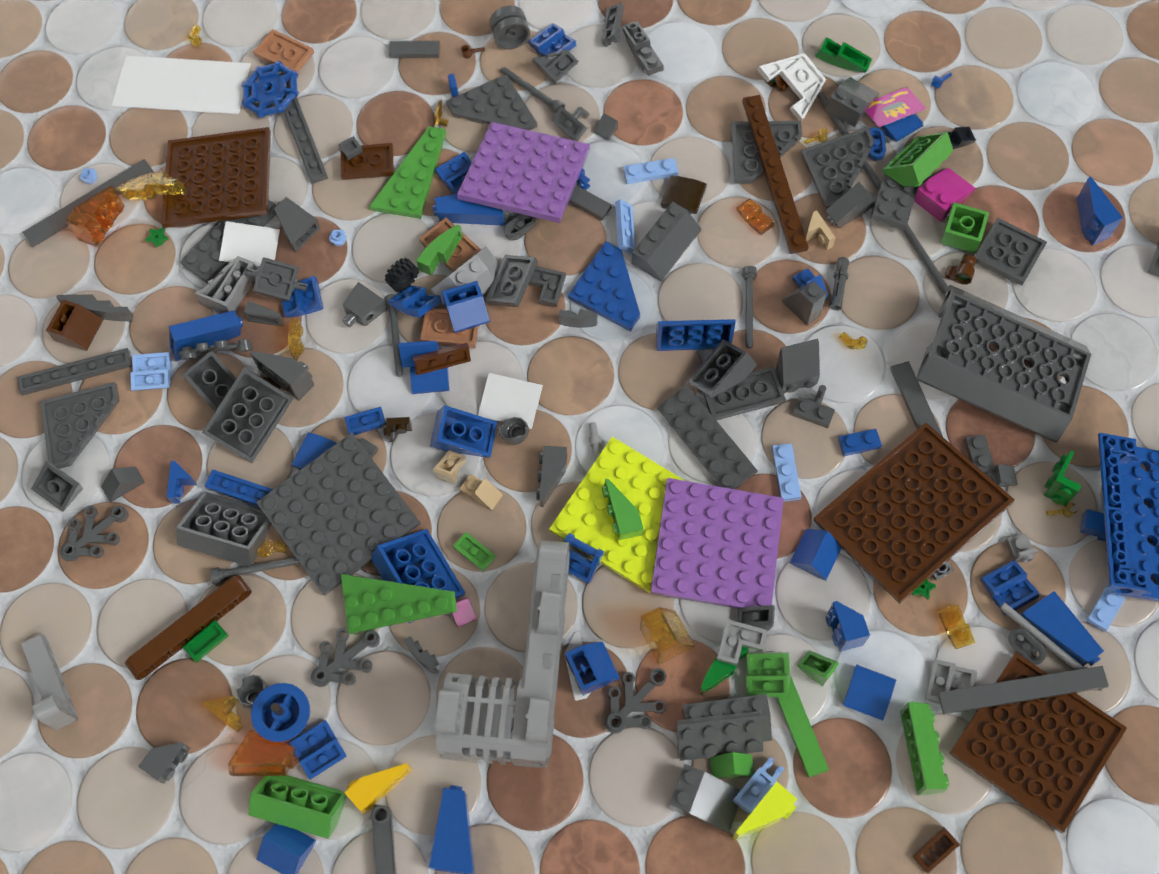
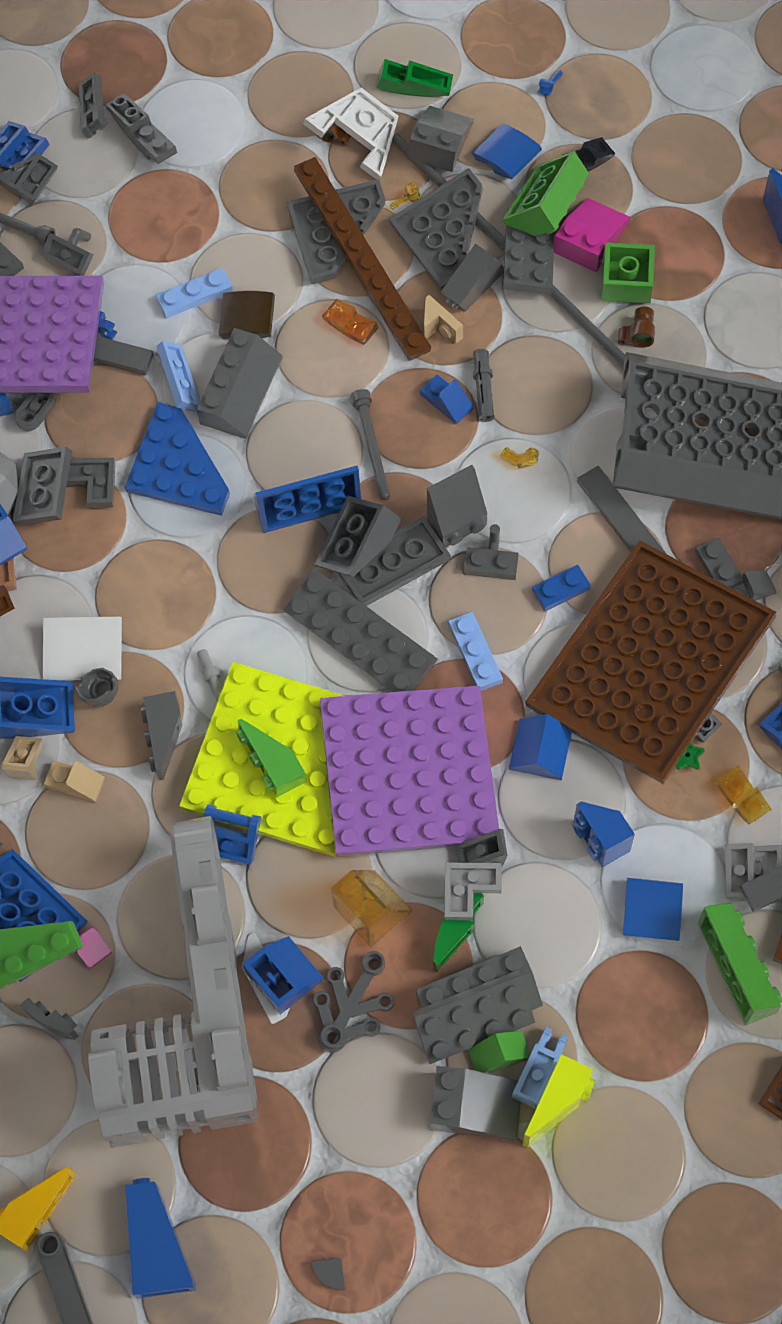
camera: 15 degrees left, 0 degrees up
(474, 552) = (86, 863): bright green plate -> none
(584, 319) = (155, 514): dark grey slope -> none
(606, 127) = (119, 247): dark grey slope -> none
(768, 674) = (516, 920): bright green slope -> none
(802, 733) = (564, 964): bright green tile -> none
(806, 302) = (446, 420): dark grey slope -> none
(818, 667) = (579, 894): bright green slope -> none
(879, 144) = (490, 188): blue plate -> none
(894, 107) = (498, 133): dark pink sticker -> none
(1010, 251) = (693, 290): dark grey plate -> none

